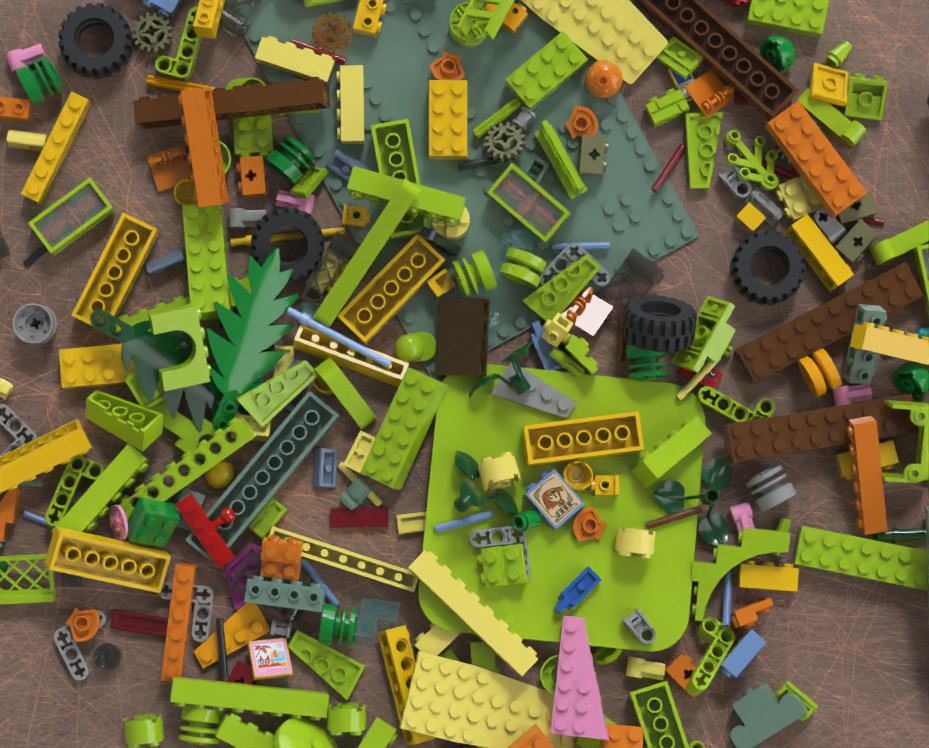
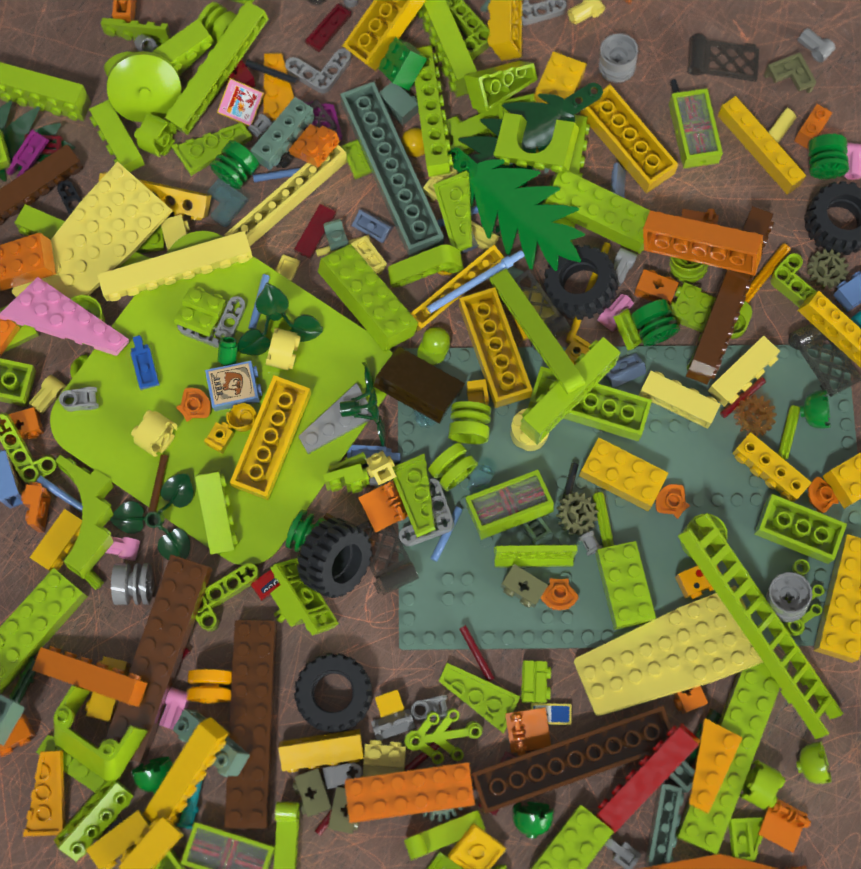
camera: 125 degrees right, 10 degrees down
(118, 522) = (417, 40): bright pink wheel -> none
(179, 621) = (311, 49): orange brick -> none
(206, 530) = (371, 99): red plate -> none
(439, 241) = (515, 406): black beam -> none
(603, 79) = (590, 635): orange cylinder -> none
(679, 58) = (576, 719): lime plate -> none
(695, 380) = (267, 565): light yellow bar -> none

